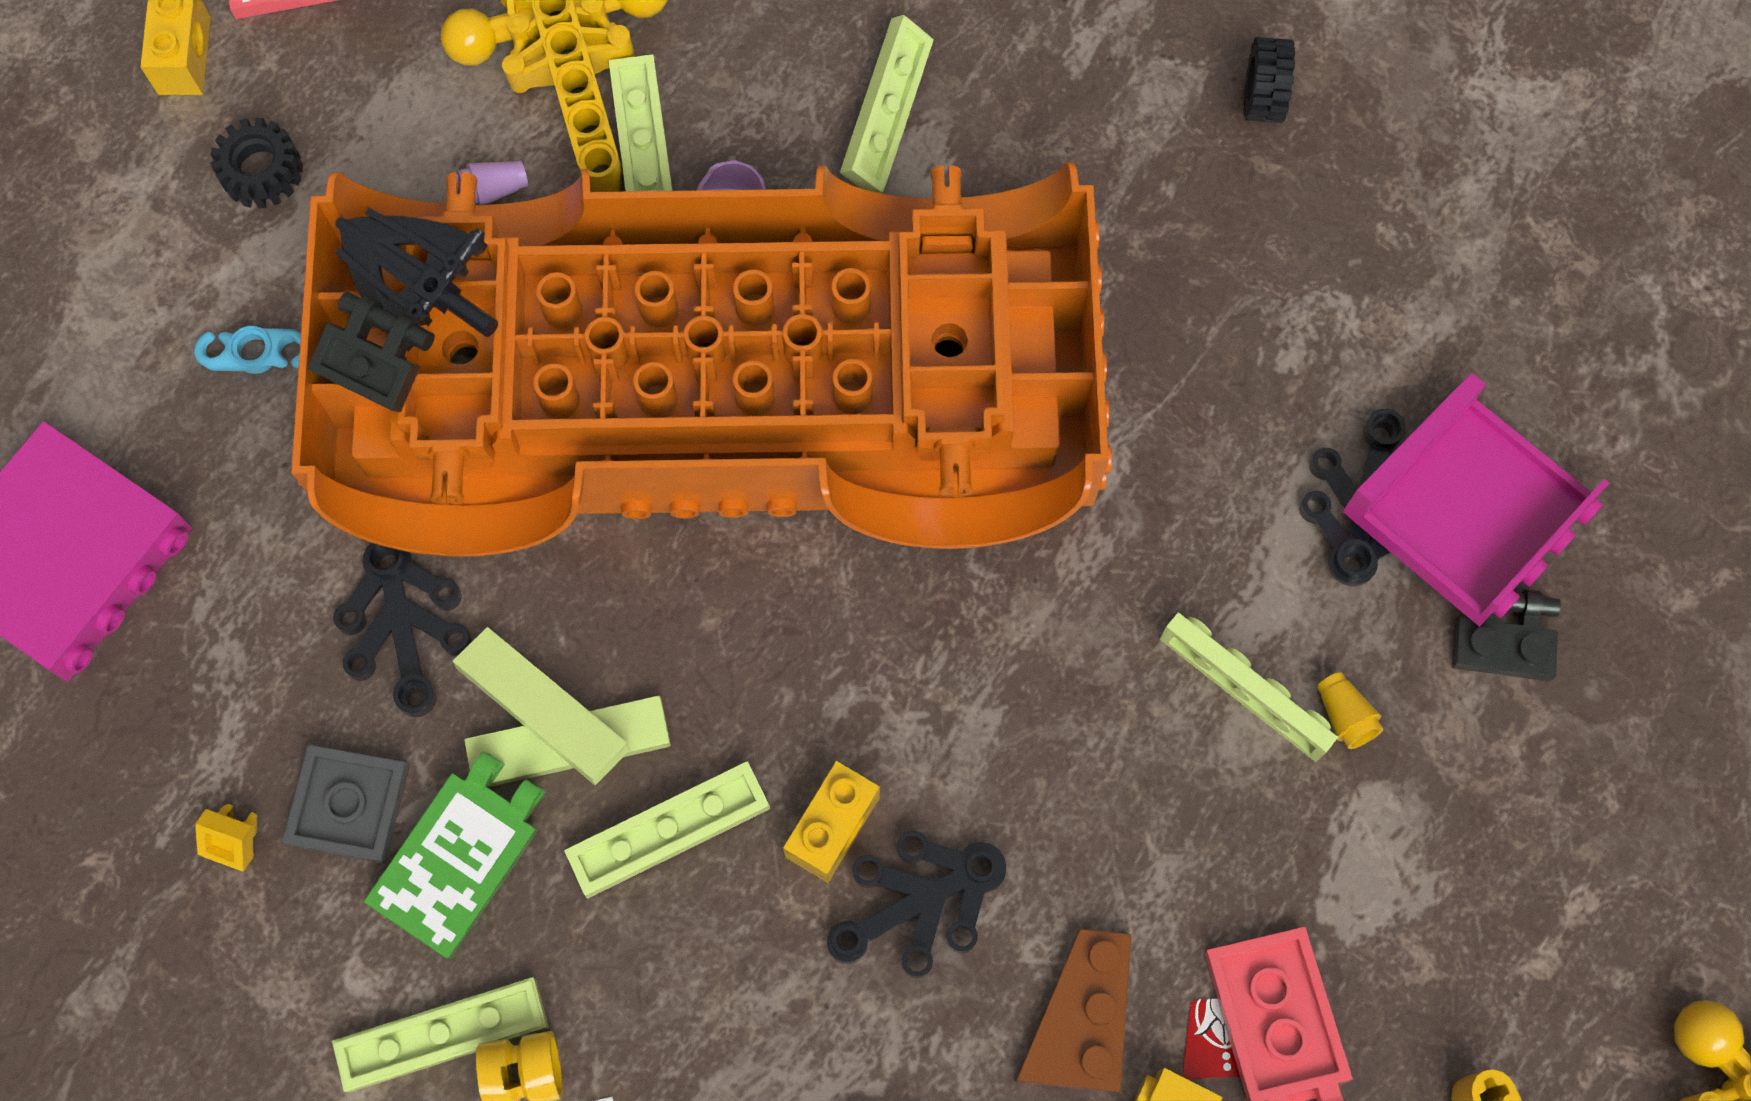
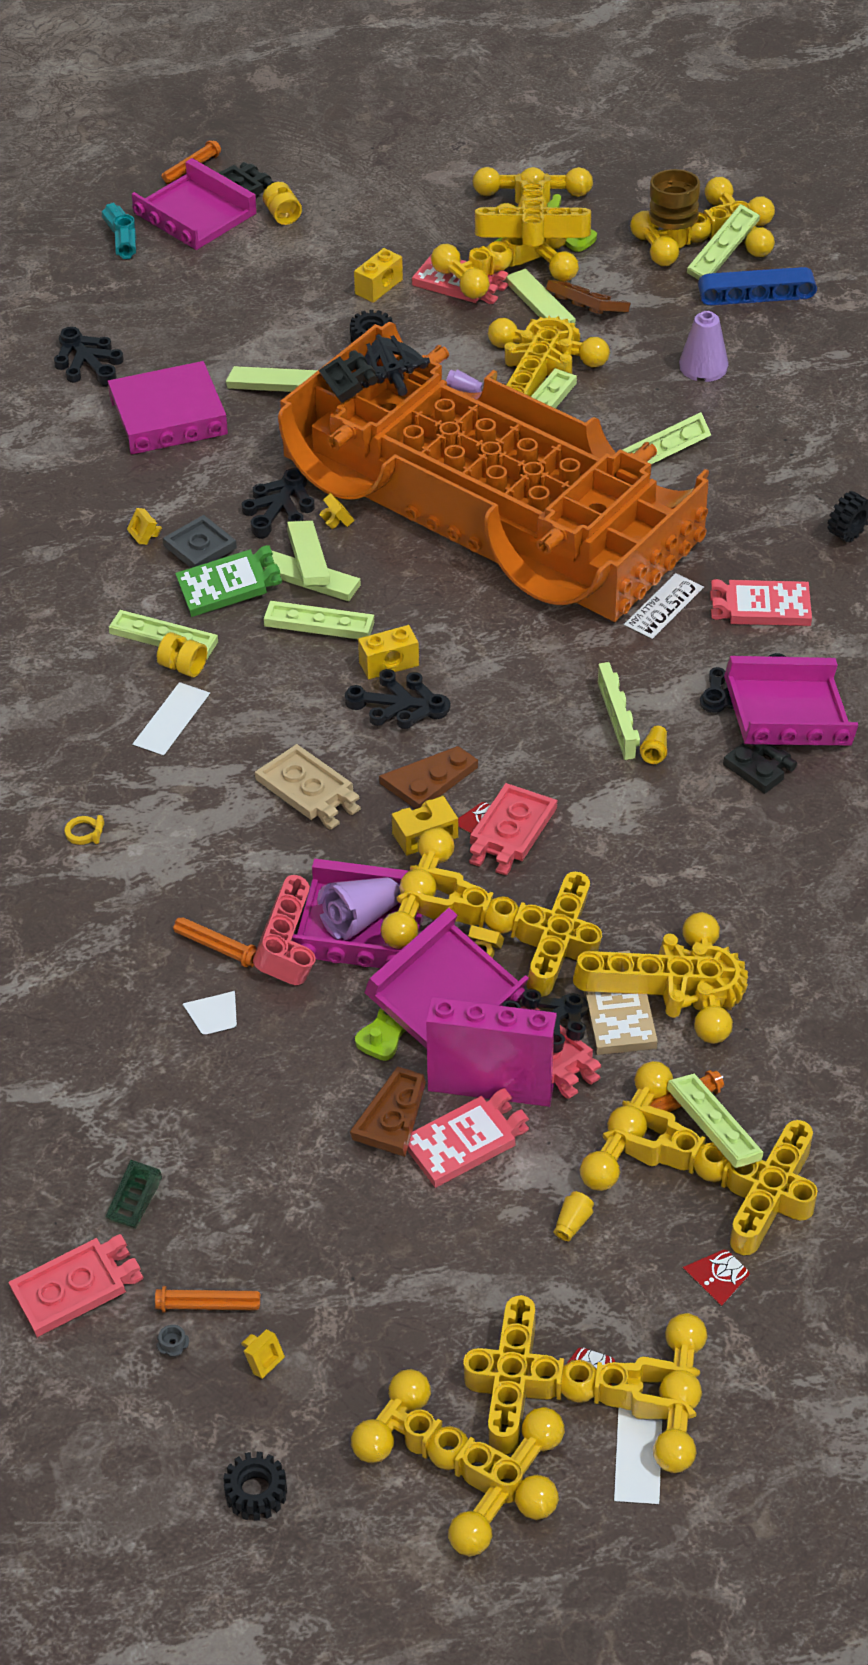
camera: 40 degrees right, 25 degrees down
(188, 371) = (267, 378): none -> yellowish green tile
(514, 580) = (336, 512): none -> yellow tile
(1133, 421) = (664, 605): none -> white sticker
(1265, 318) = (762, 602): none -> coral tile

